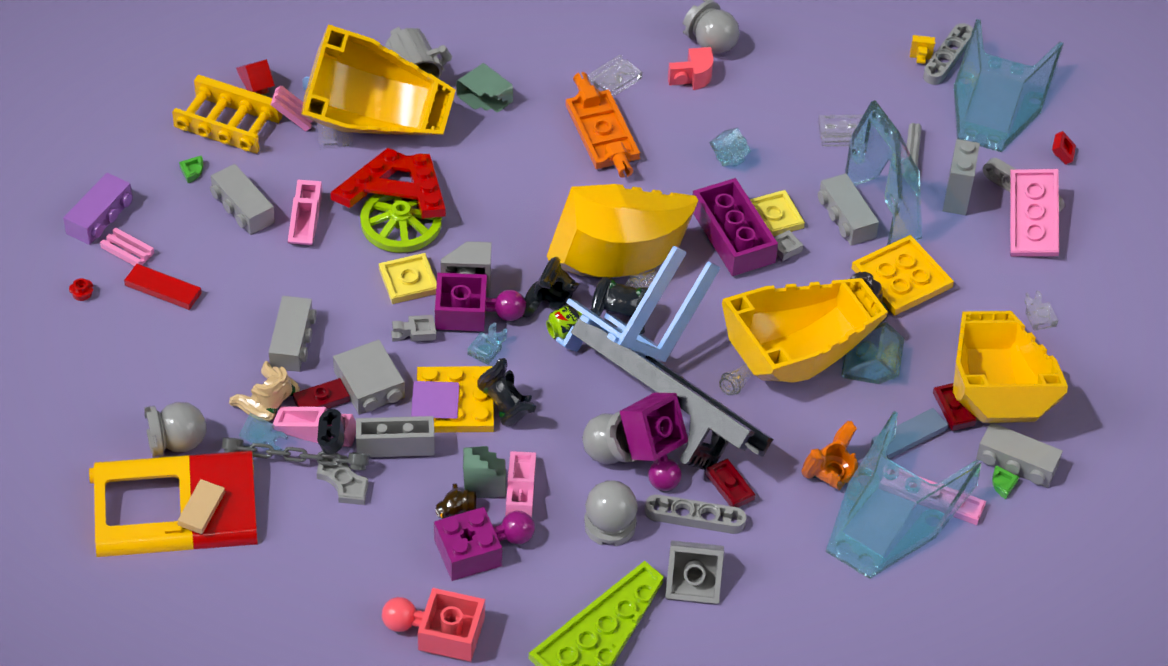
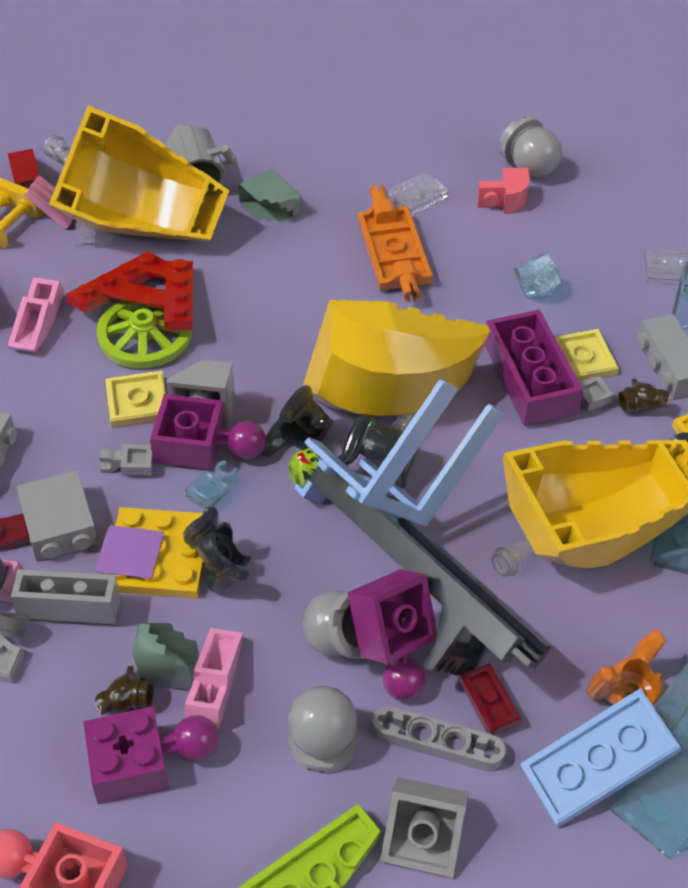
camera: 10 degrees right, 0 degrees up
(283, 57) = (56, 149): none -> clear cone
(815, 513) = (600, 757): none -> light blue tile
(826, 245) = (642, 397): none -> dark brown animal

